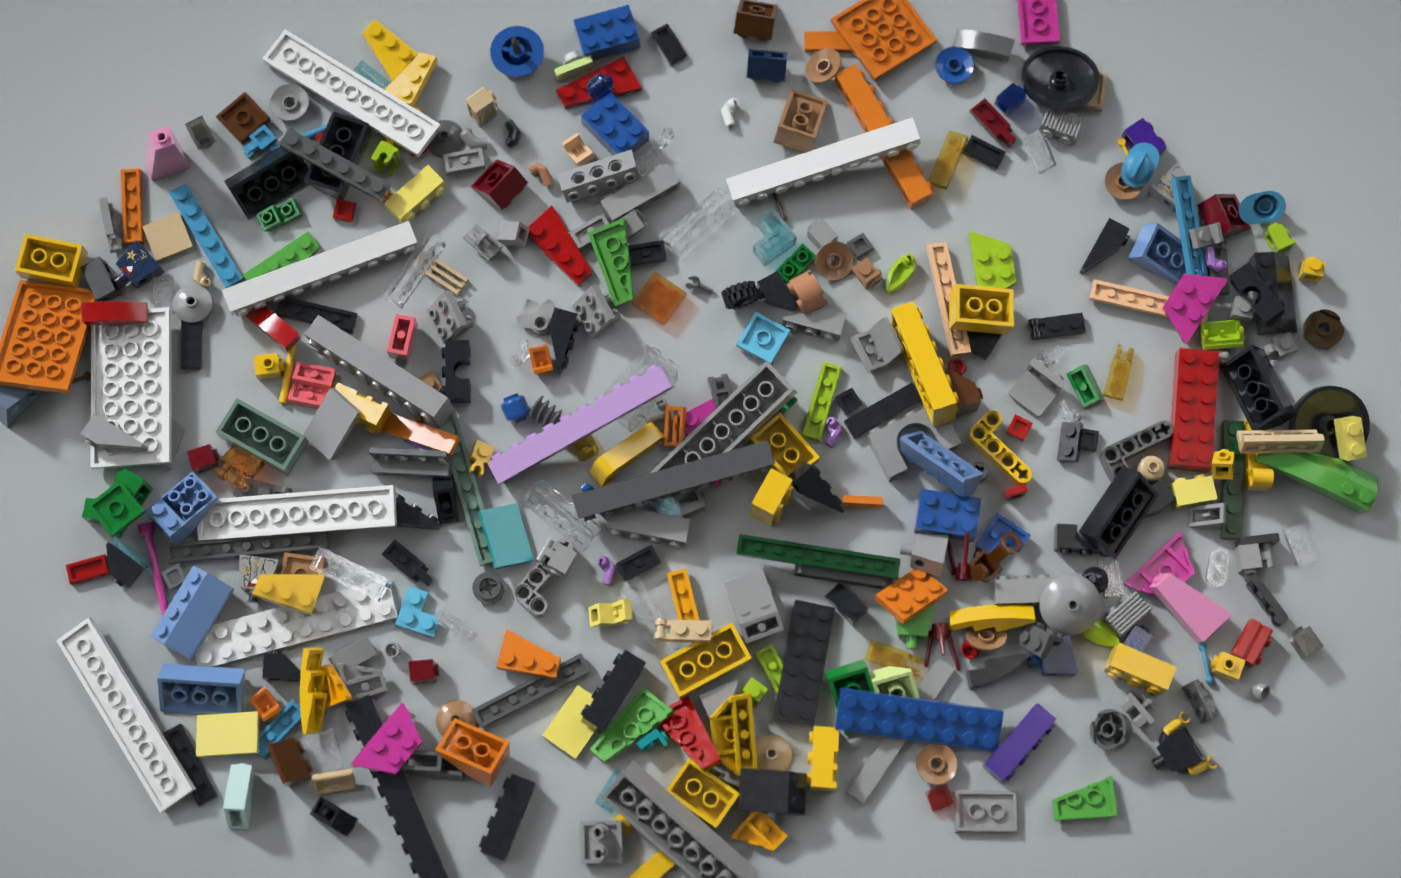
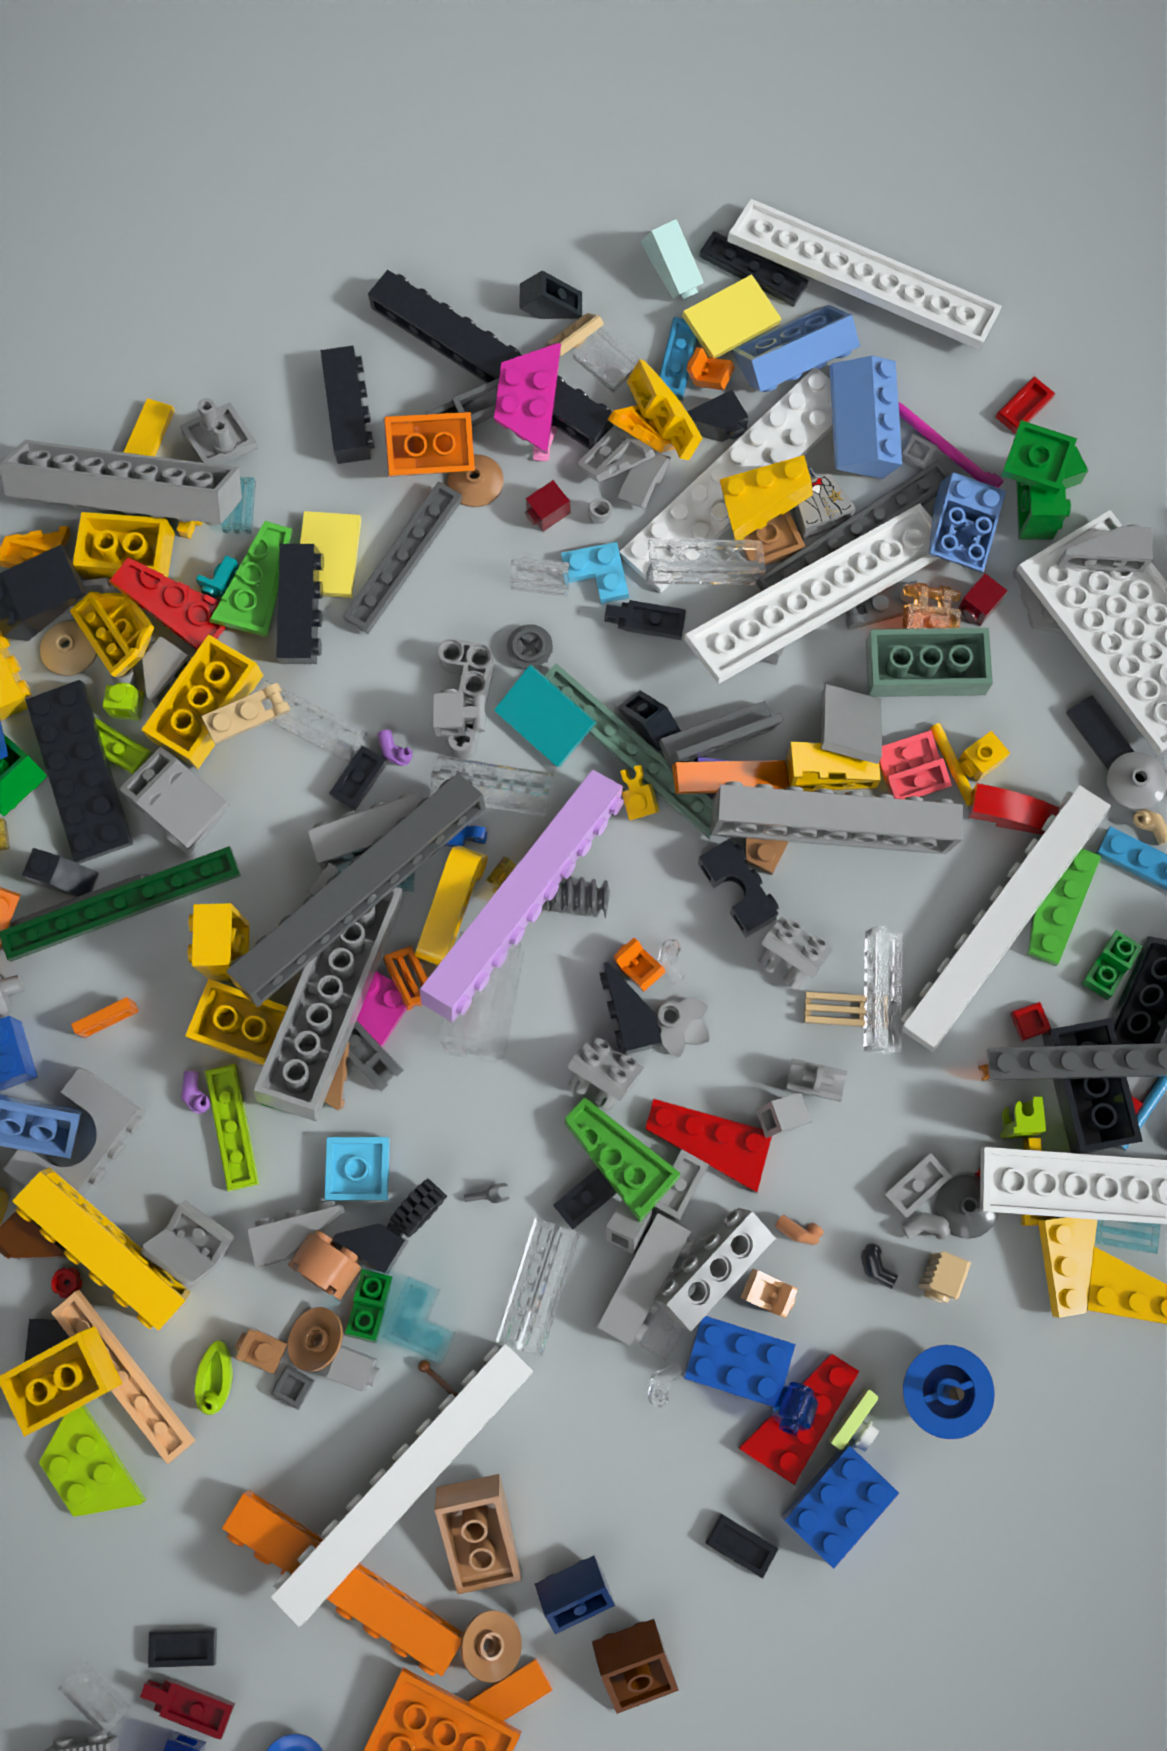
camera: 155 degrees right, 0 degrees up
(122, 566) = (987, 426): black slope -> none
(130, 552) = (985, 446): clear light blue tile -> none
(290, 761) = (638, 320): reddish brown slope -> none
(308, 311) = (968, 862): black tile -> none
(402, 337) = (837, 887): coral brick -> none
(412, 517) = (680, 676): black slope -> none
(415, 195) = (950, 1095): light yellow brick -> none
(500, 184) = (847, 1179): dark red slope -> none
(515, 408) = (633, 882): blue head -> none
(526, 658) = (433, 586): orange wing -> none
(610, 613) = (356, 695): light yellow brick -> none
(659, 298) = (531, 1143): clear orange plate -> none
(682, 595) = (275, 765): light orange plate -> none
(728, 110) = (594, 1487): white arm -> none
(810, 484) = (172, 987): black slope -> none
(848, 401) = (193, 1146): black plate -> none
(882, 410) = (141, 1162): black tile -> none
(948, 159) = (228, 1601): clear yellow plate -> none

